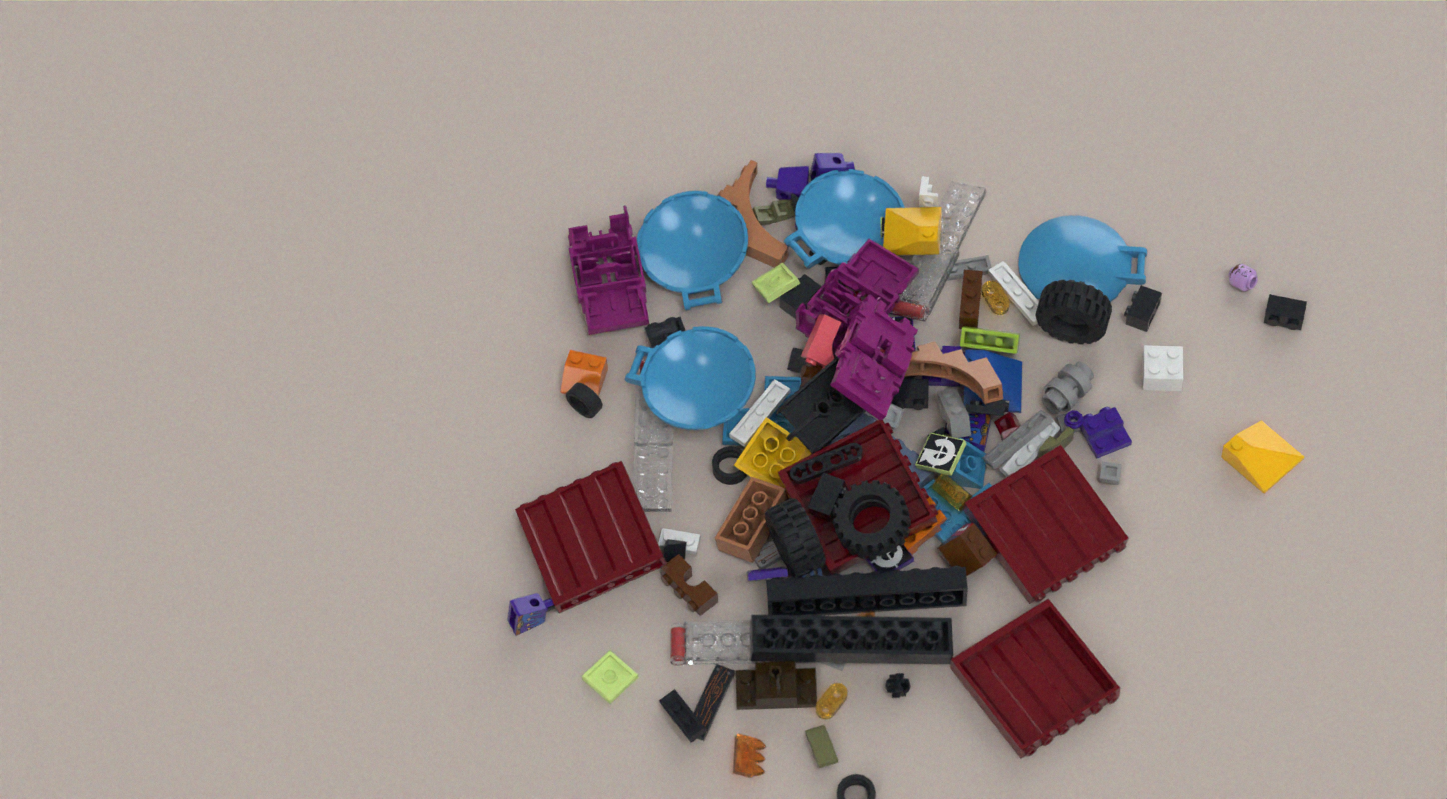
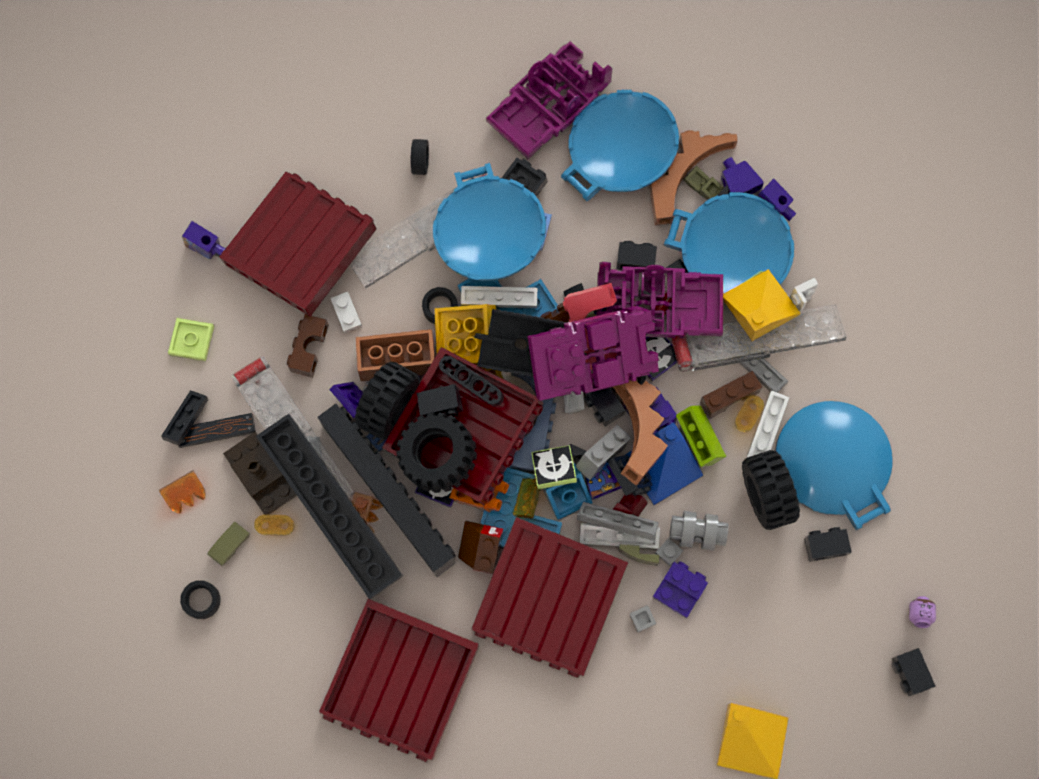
camera: 55 degrees right, 15 degrees up
(584, 369) = (446, 142): orange slope -> none
(673, 548) = (331, 313): black slope -> none
(775, 282) = (633, 229): yellowish green tile -> none
(897, 685) = (319, 569): black gear -> none
(1073, 415) = (669, 549): dark purple plate -> none
(1163, 368) = (777, 599): white brick -> none

